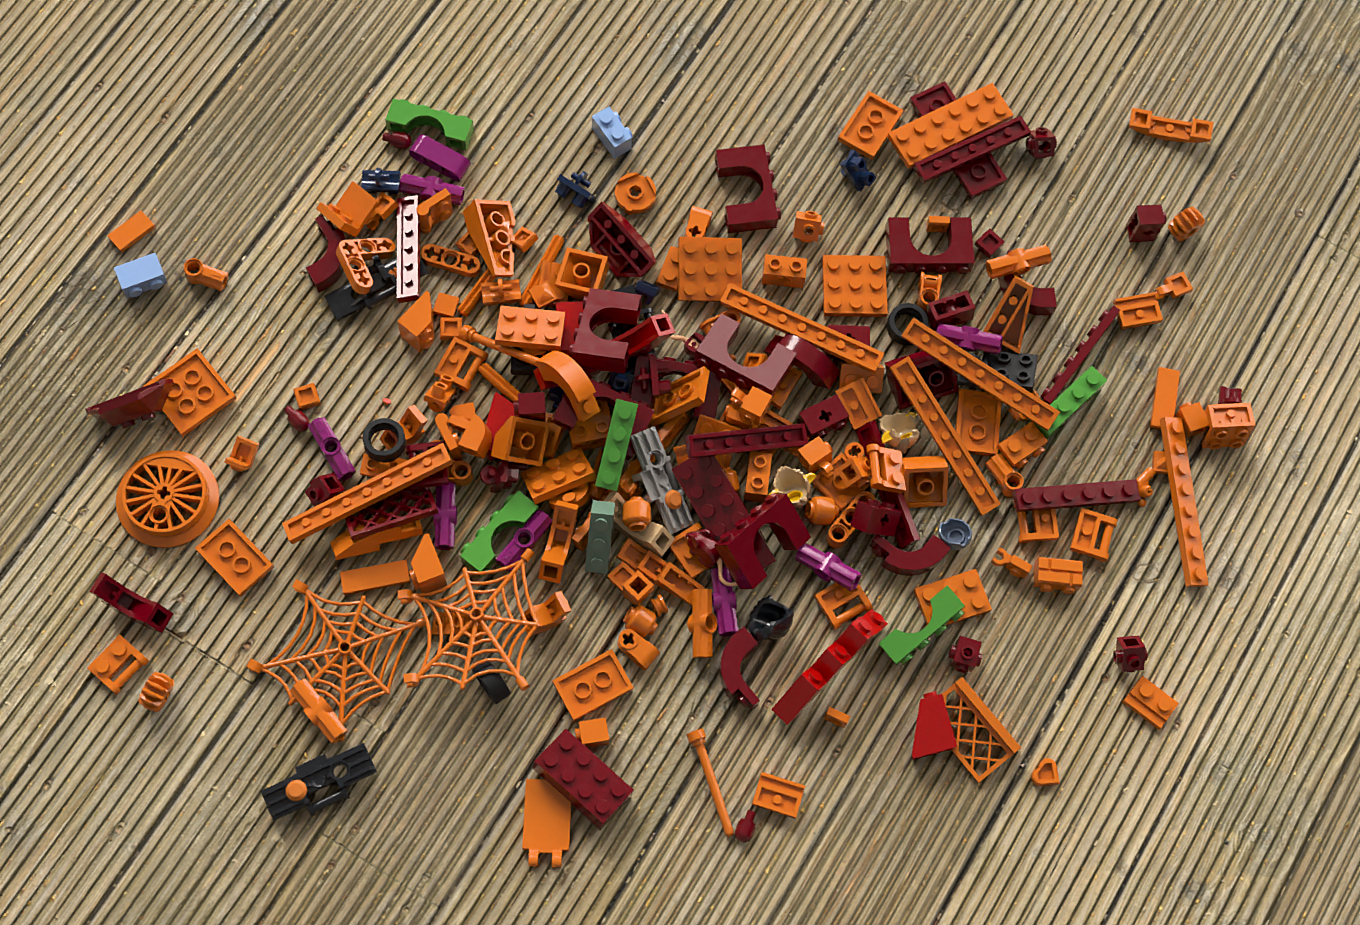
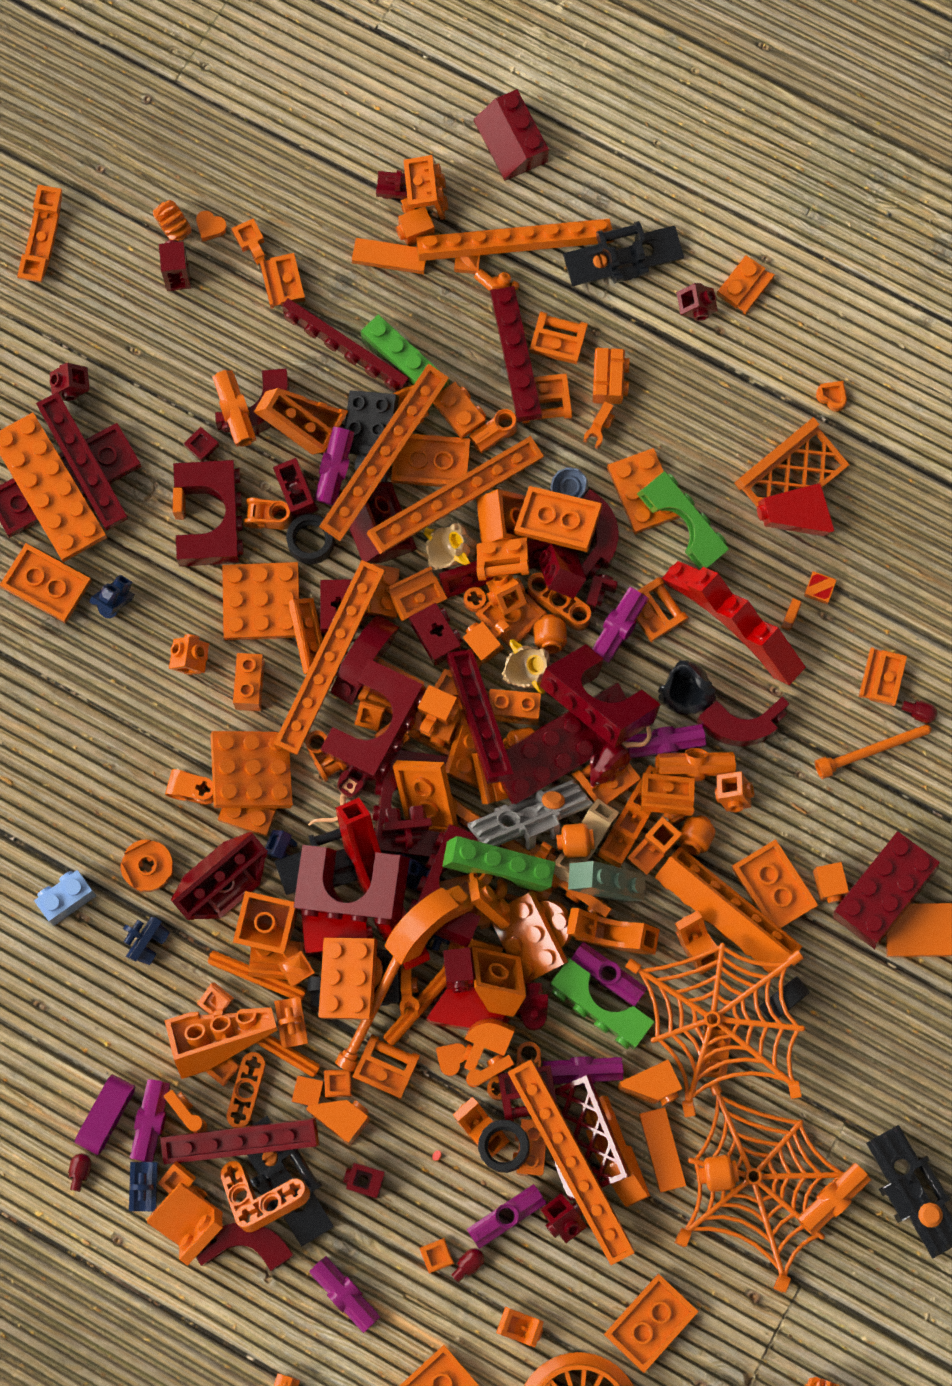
camera: 85 degrees left, 5 degrees up
(283, 324) = (344, 1294): none -> magenta piece
(348, 615) = (719, 1173): none -> orange head
(368, 335) = (375, 1178): none -> dark red brick
(407, 116) = (47, 1164): bright green arch -> none
(440, 393) = (428, 1087): orange hips -> none
(521, 380) = (408, 986): none -> orange plate
(572, 640) = (726, 909): none -> orange brick
(584, 439) = (490, 900): none -> orange plate
(640, 651) = (730, 835): orange piece -> none
(675, 595) = (667, 794): none -> orange plate
(676, 653) = (734, 791): none -> orange brick
(753, 163) = (103, 720): dark red arch -> none
(832, 315) = (306, 629): none -> orange tile
(859, 550) = (595, 595): none -> dark red bracket
(862, 747) = (820, 587): none -> orange tile
(922, 517) = (558, 518): none -> orange plate
(965, 654) = (710, 475): dark red brick -> none
(1165, 594) = (625, 263): none -> black piece
(1185, 257) = (210, 225): none -> orange tile
(1283, 505) = (511, 135): none -> dark red slope

